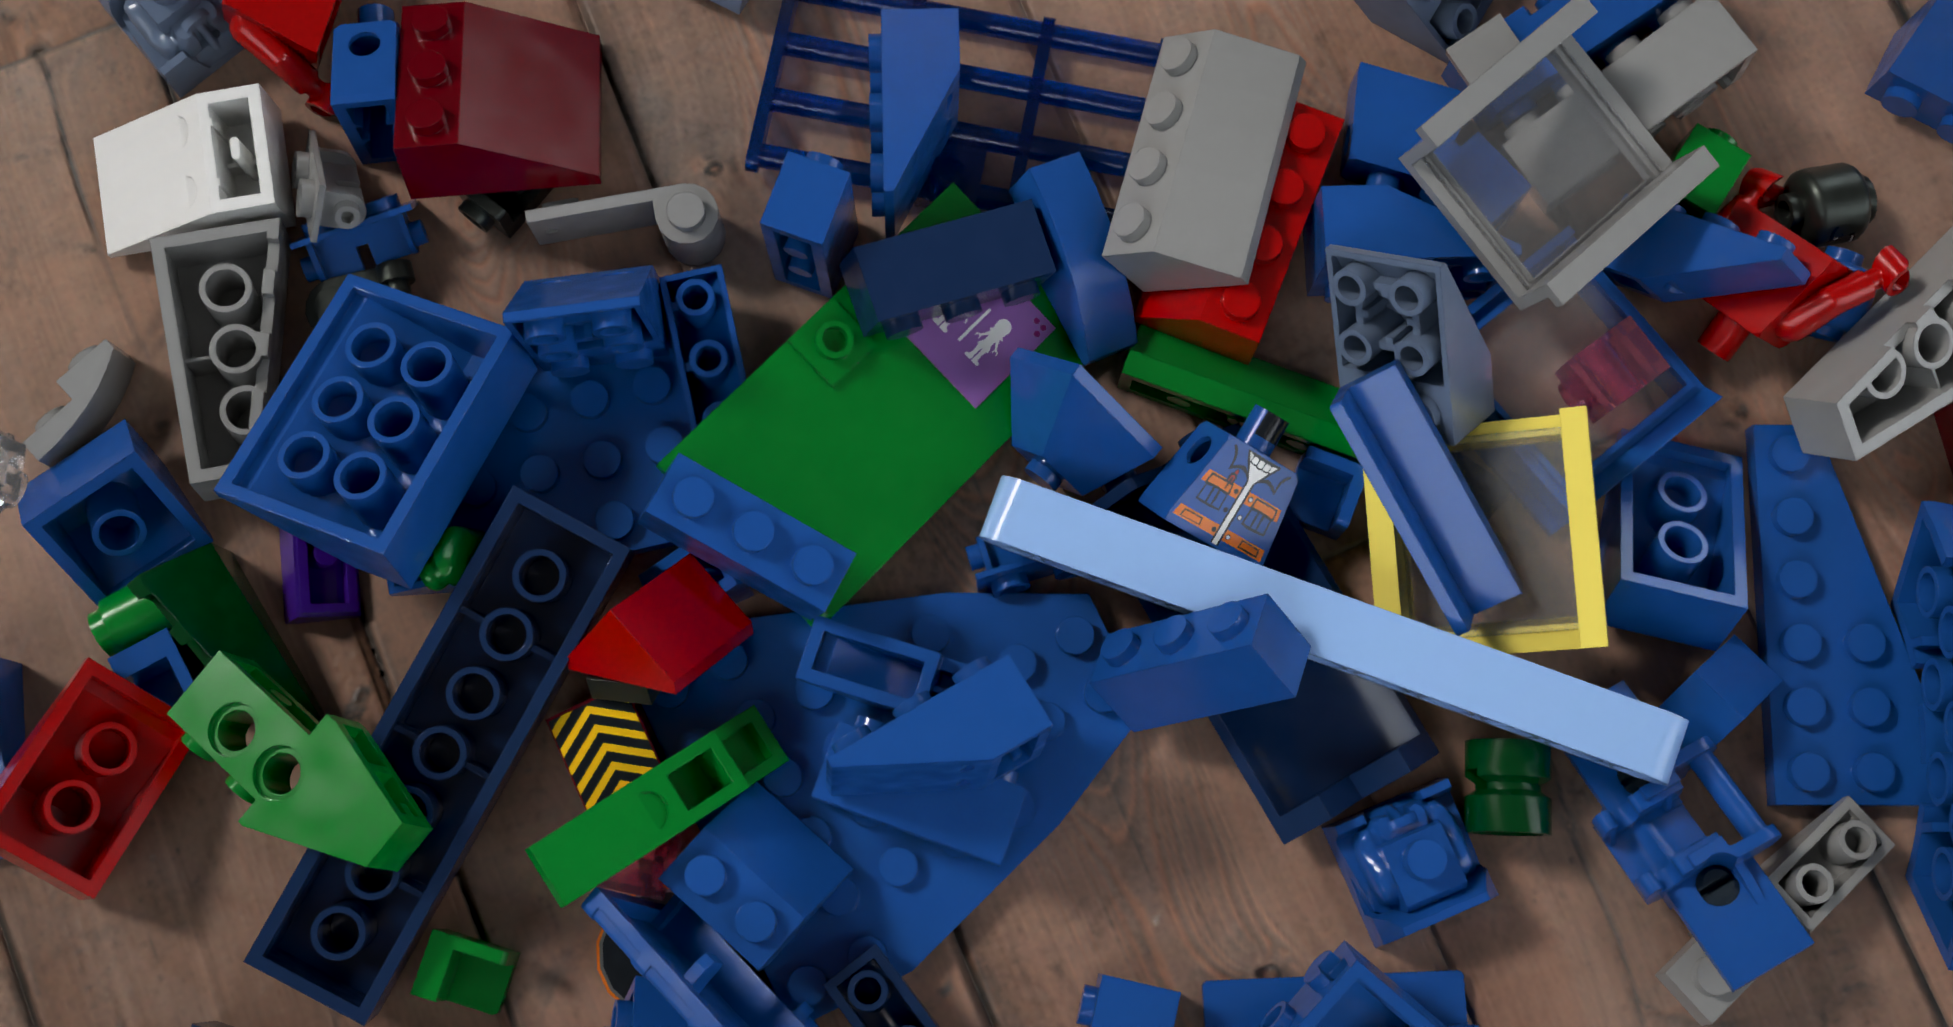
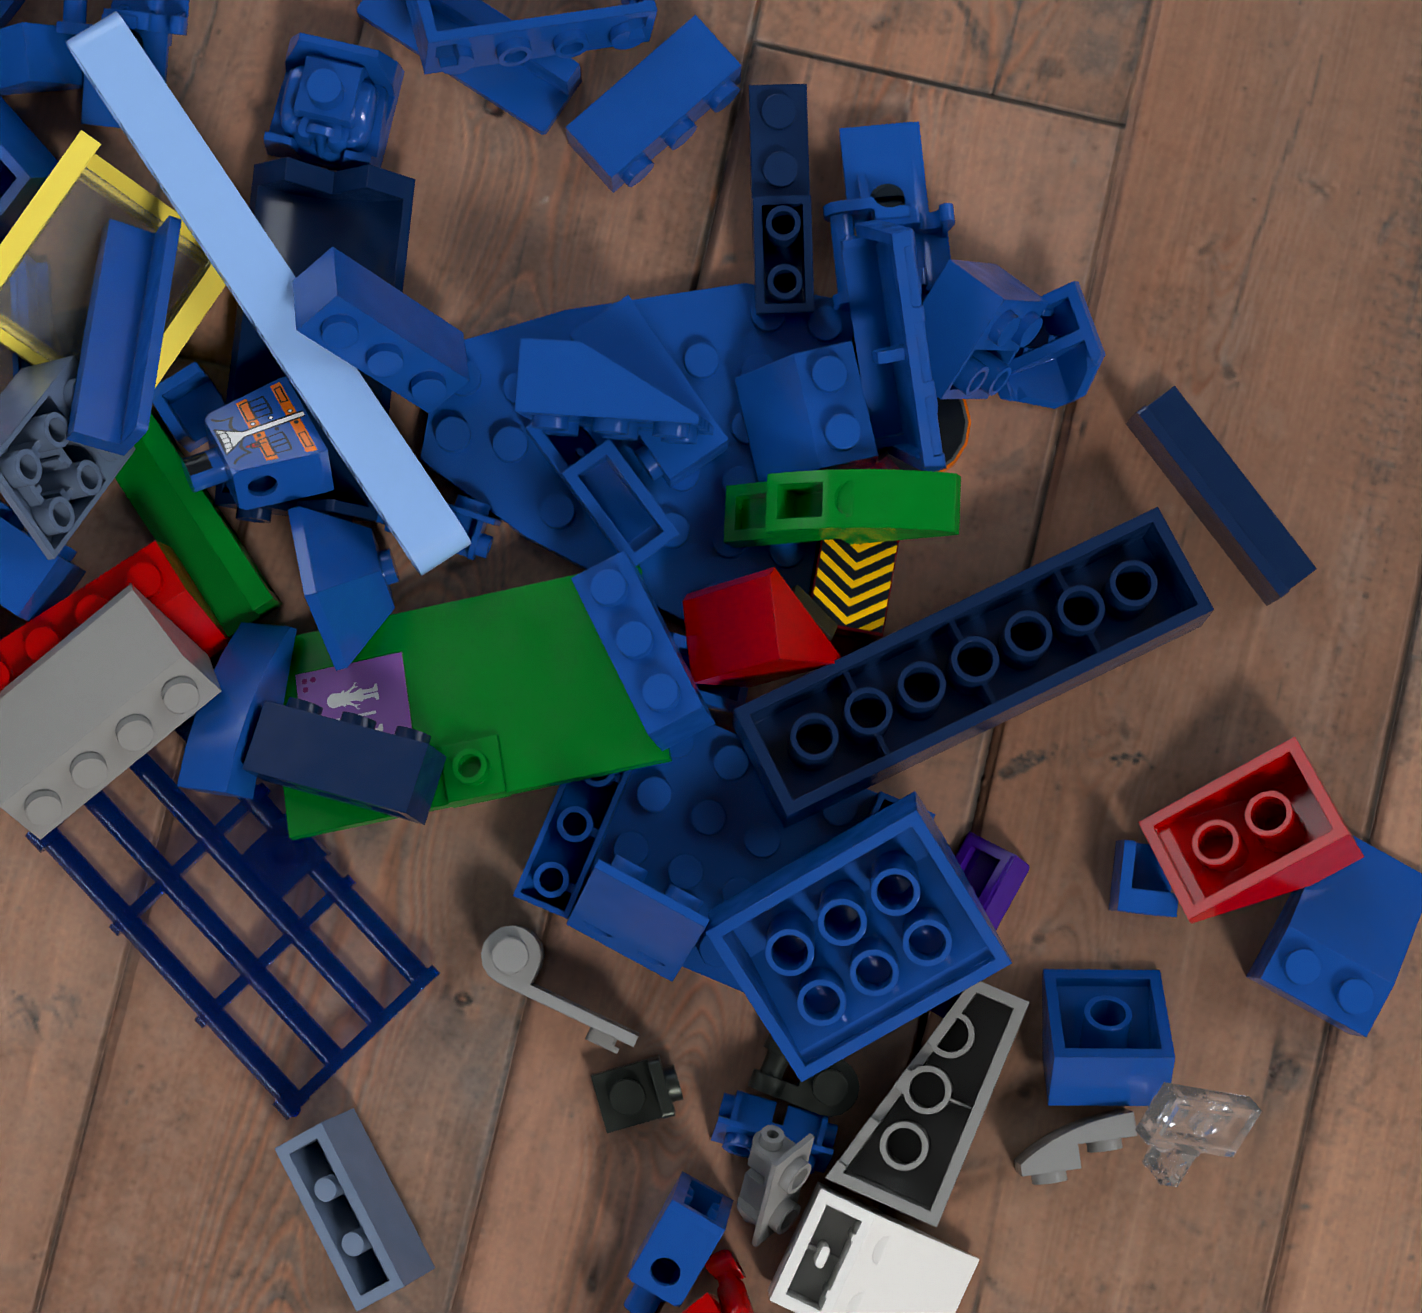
camera: 145 degrees left, 5 degrees up
(124, 621) = (1131, 943): green brick -> none
(218, 610) = (1073, 867): dark green wedge -> none
(346, 790) = (1059, 662): green brick -> none
(451, 557) = (866, 802): green arm -> none
(465, 971) = (1061, 508): green panel -> none
(495, 102) = (592, 1157): dark red slope -> none
(810, 222) = (420, 871): blue brick -> none
(910, 104) = (259, 925): blue slope -> none
(1507, 787) = (228, 102): dark green wheel -> none

